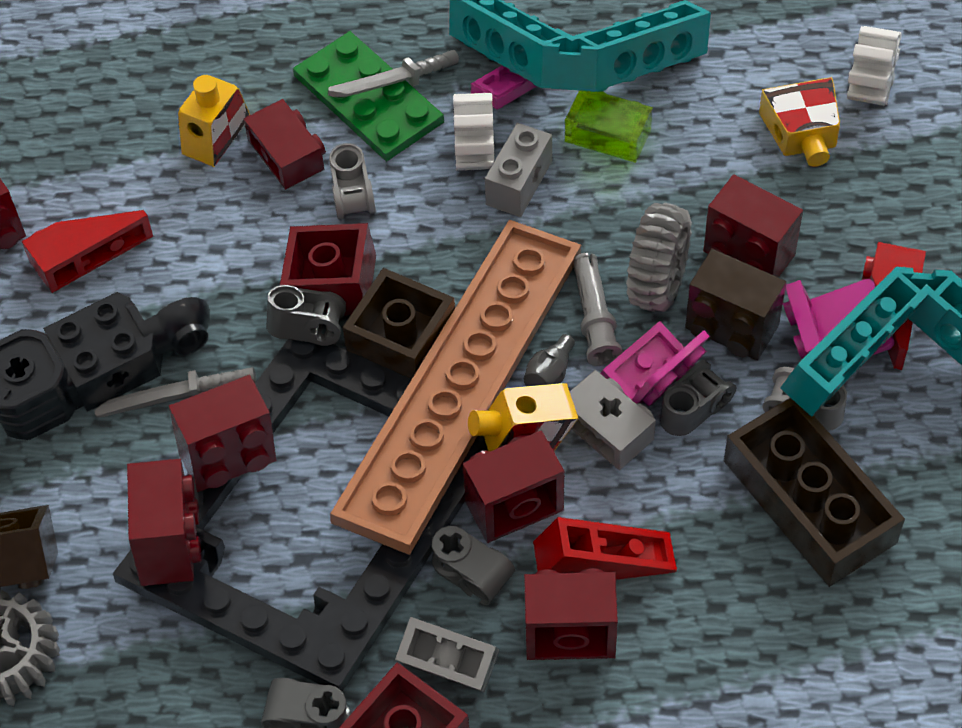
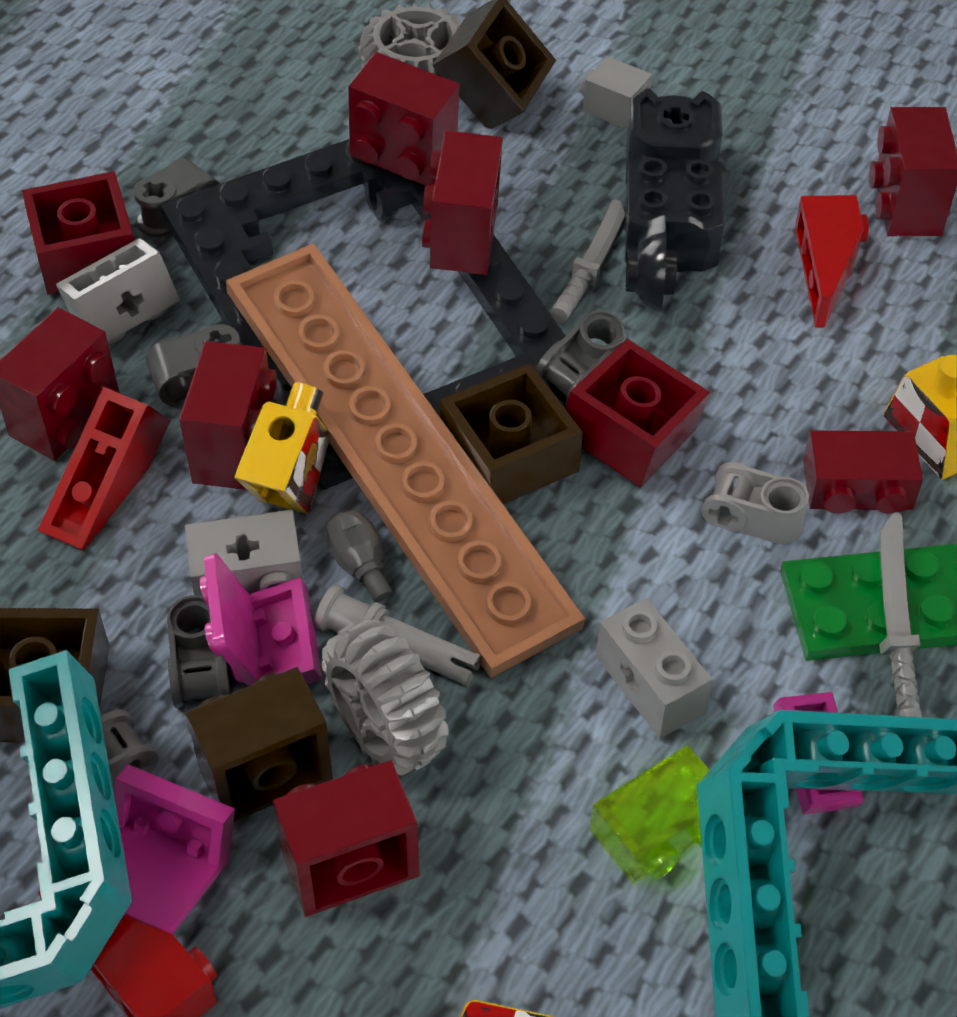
camera: 120 degrees right, 5 degrees down
(473, 131) = (740, 637): white gear -> none

